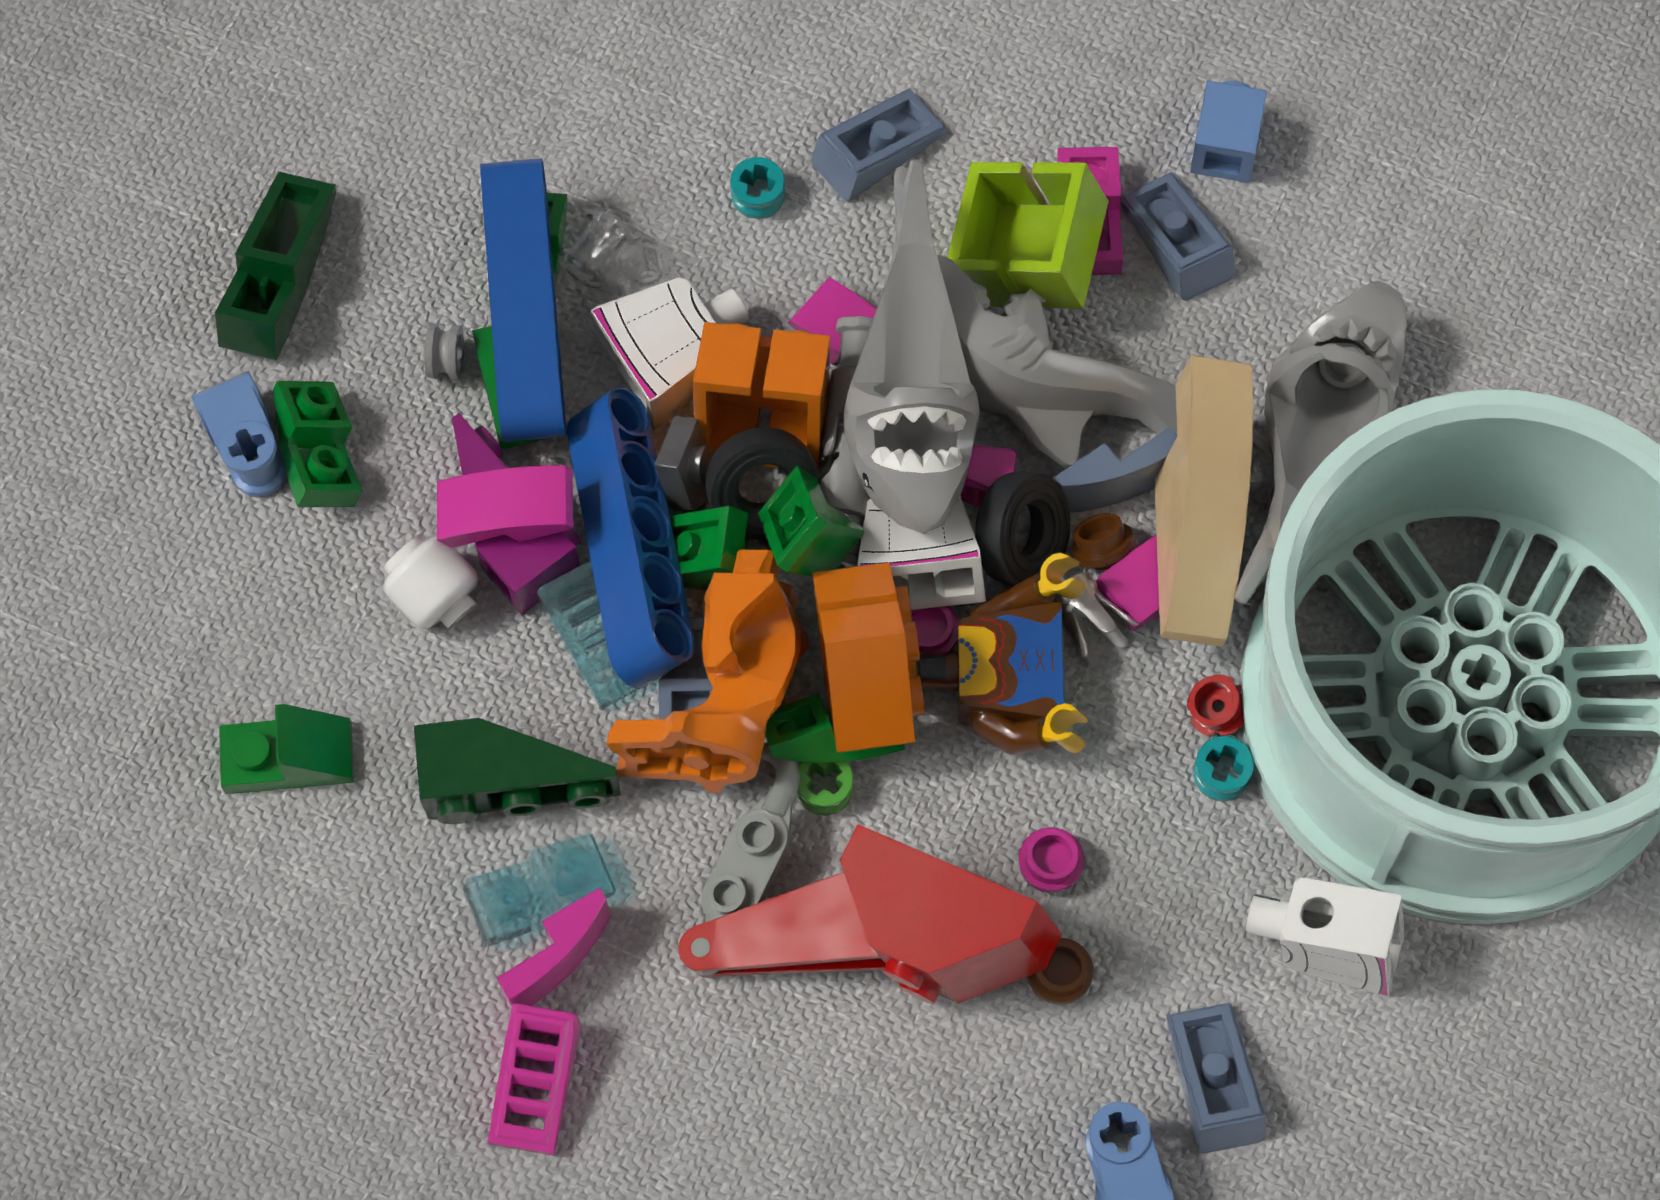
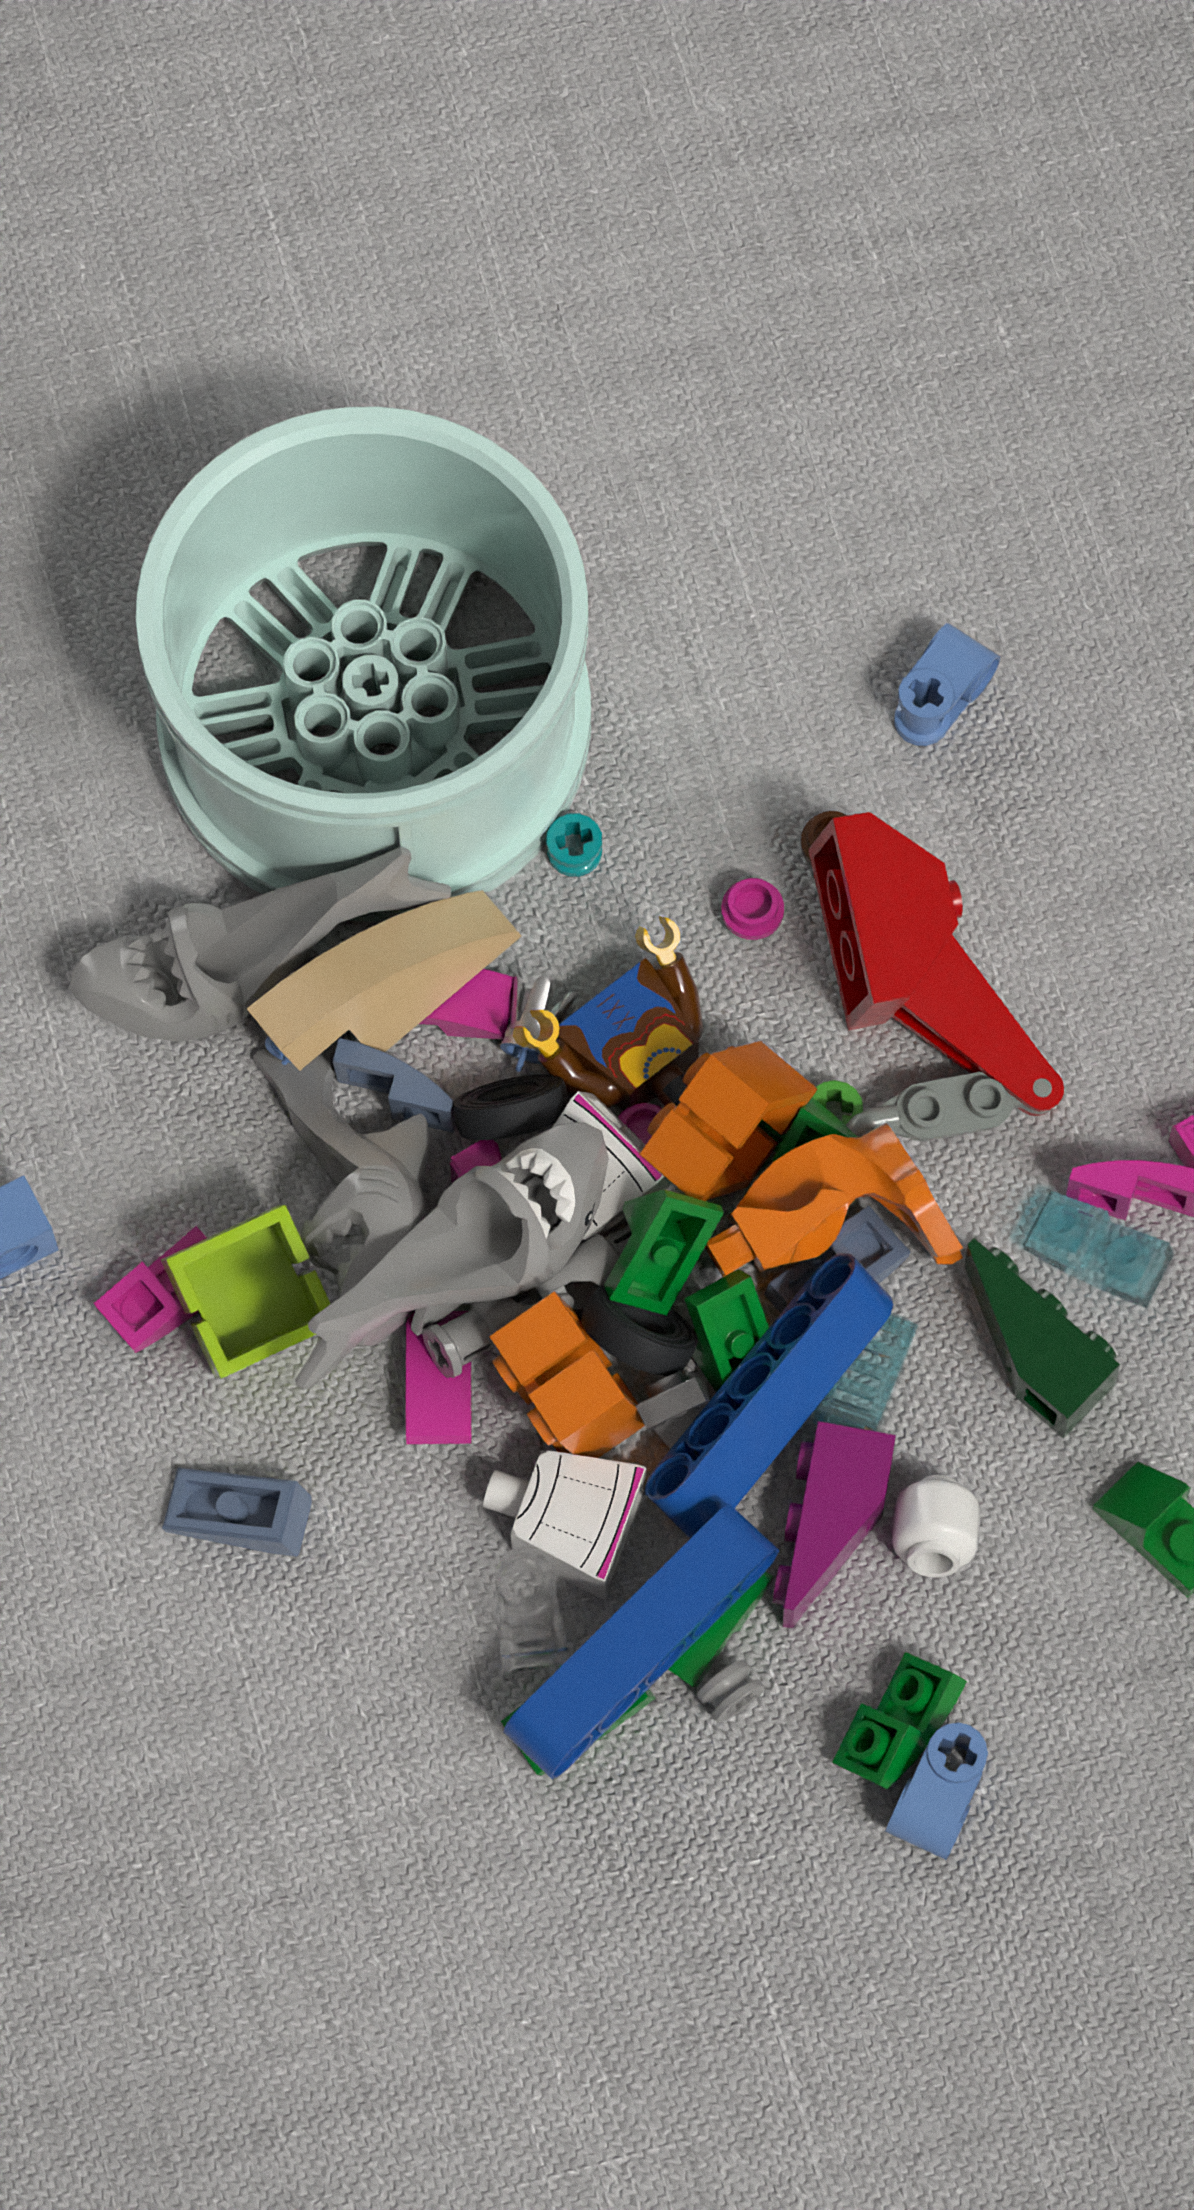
camera: 130 degrees left, 0 degrees up
(275, 266) = (768, 1902): dark green slope -> none
(505, 501) = (837, 1489): dark pink slope -> none
(747, 173) = (382, 1576): teal bush -> none
(1102, 541) = (464, 1056): reddish brown plate -> none
(1179, 236) = (129, 1210): sand blue slope -> none
(1201, 703) = (544, 877): red plate -> none
(1216, 1078) = (815, 685): sand blue slope -> none
(1335, 932) = (641, 644): white torso -> none

